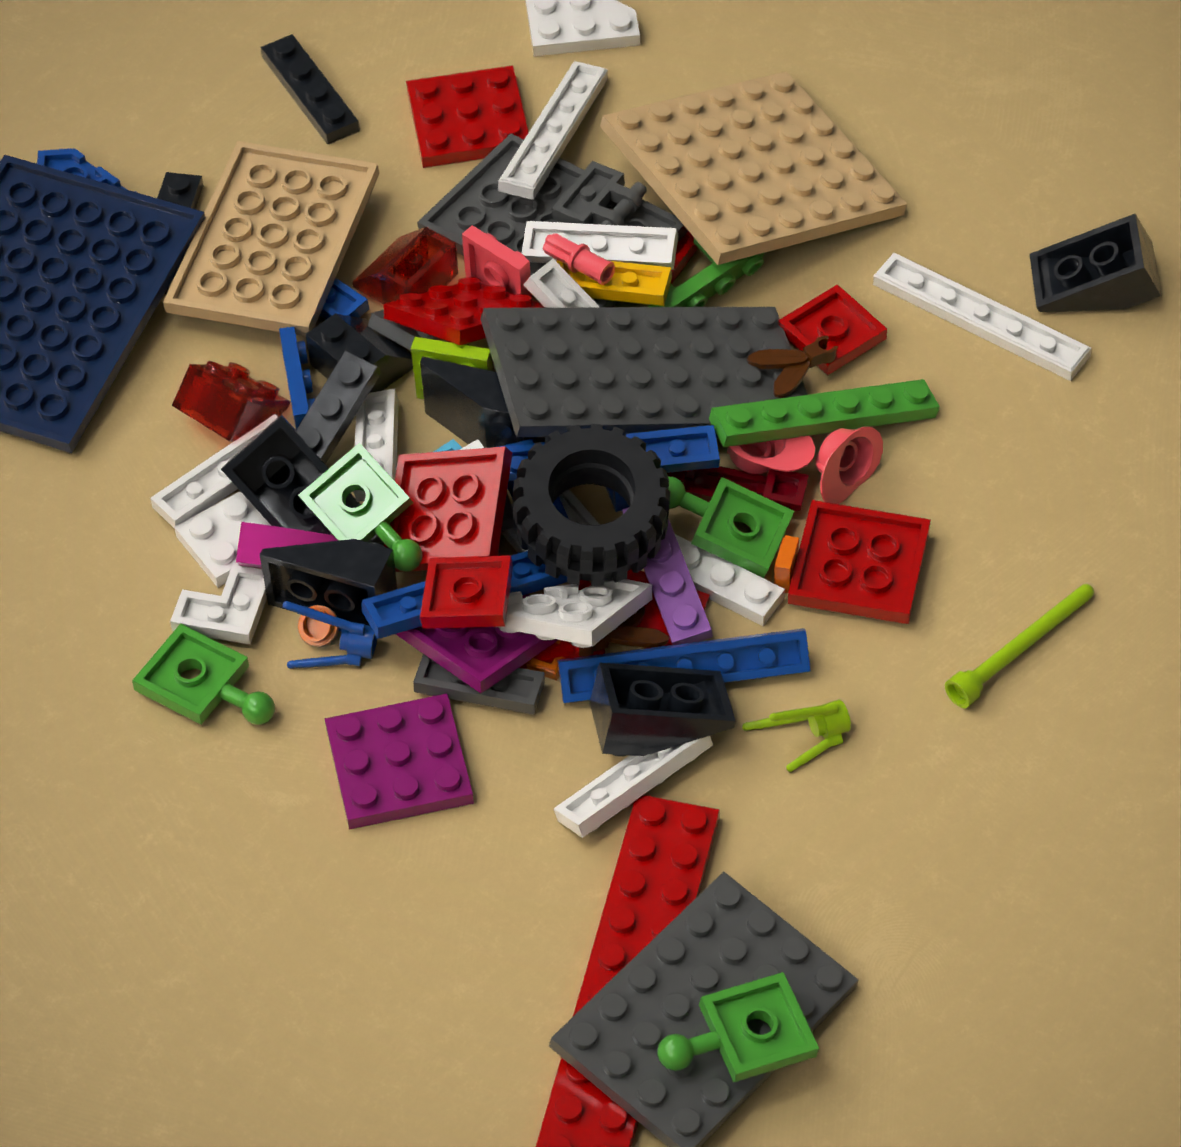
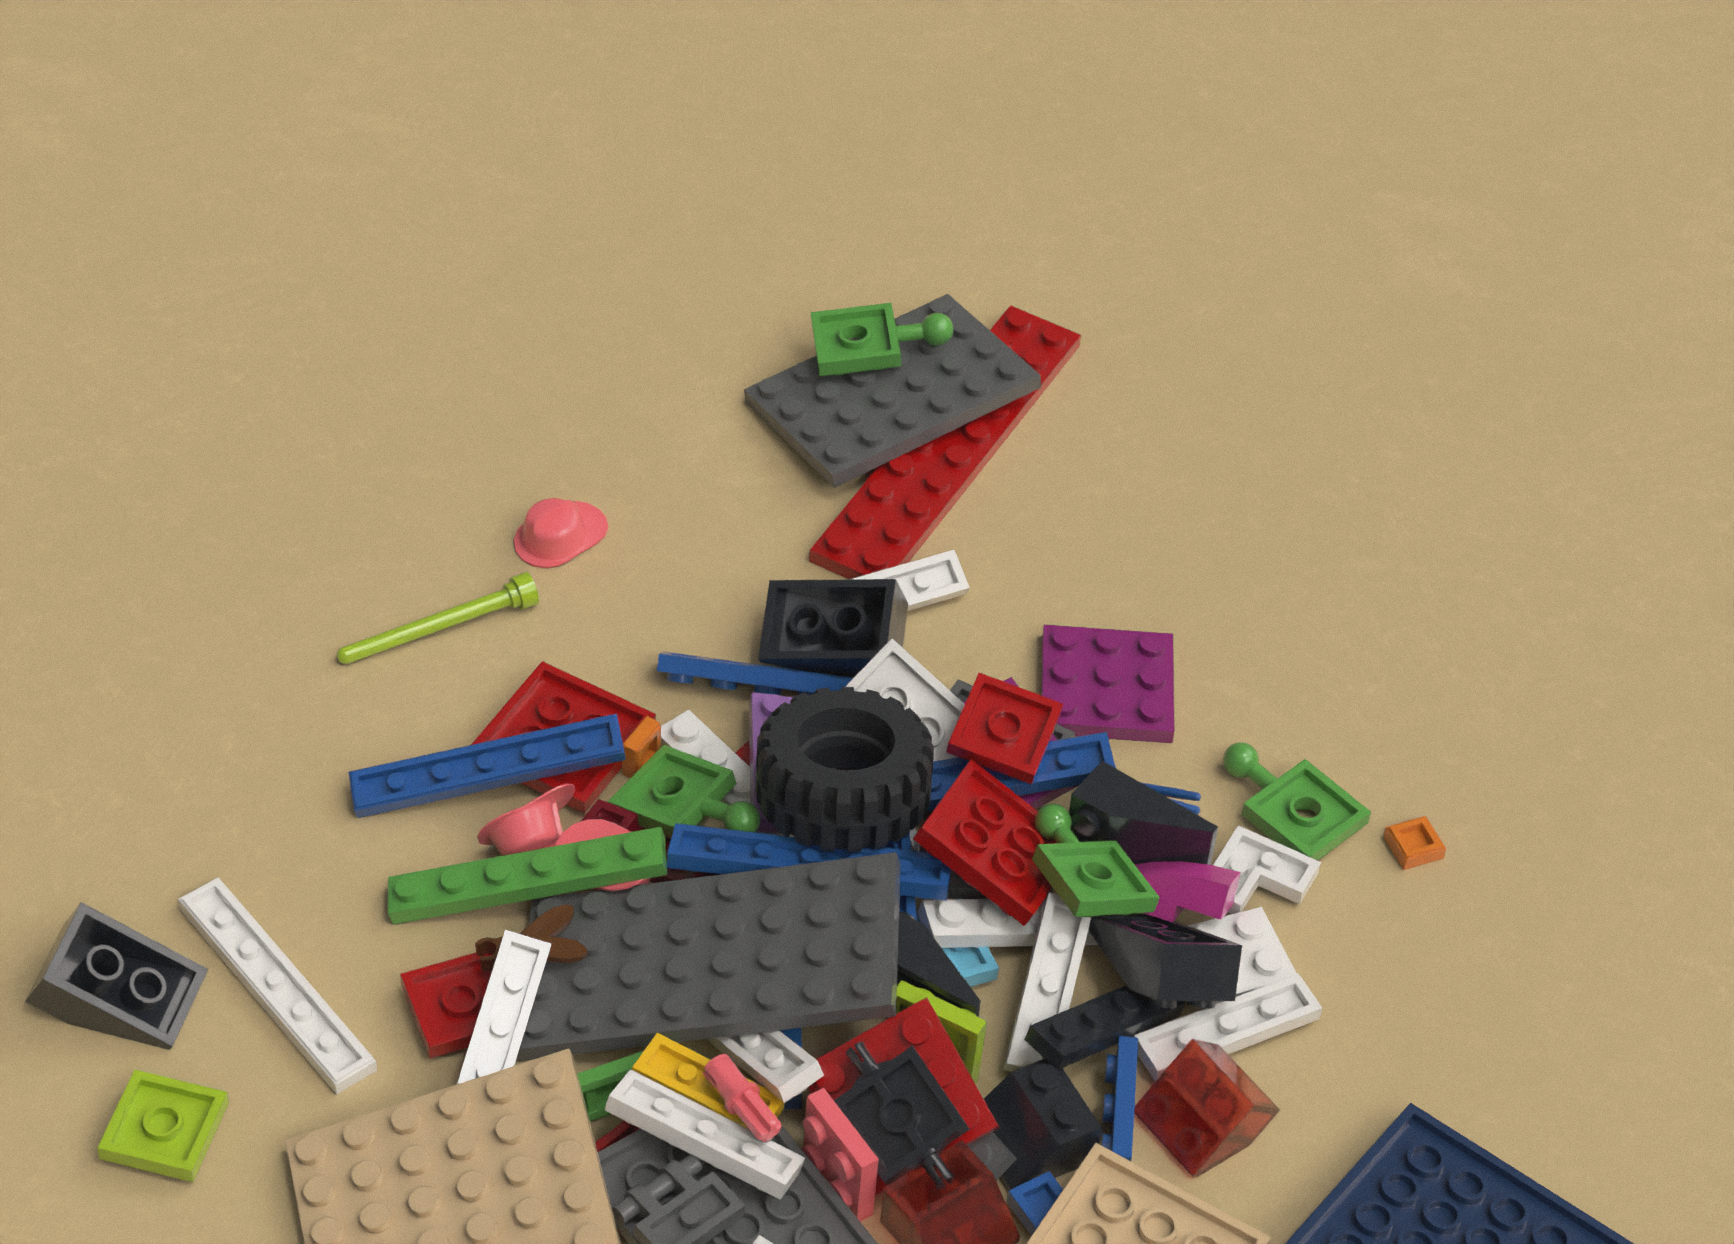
camera: 170 degrees left, 5 degrees down
(90, 684) = (1414, 842): none -> orange tile
(456, 272) = (901, 1114): none -> black plate
(788, 297) = (505, 1006): none -> white plate
(824, 720) = (671, 595): lime plant -> none
(903, 502) = (486, 765): none -> blue tile
(962, 773) = (558, 532): none -> coral piece
(999, 193) = (163, 1125): none -> lime plate

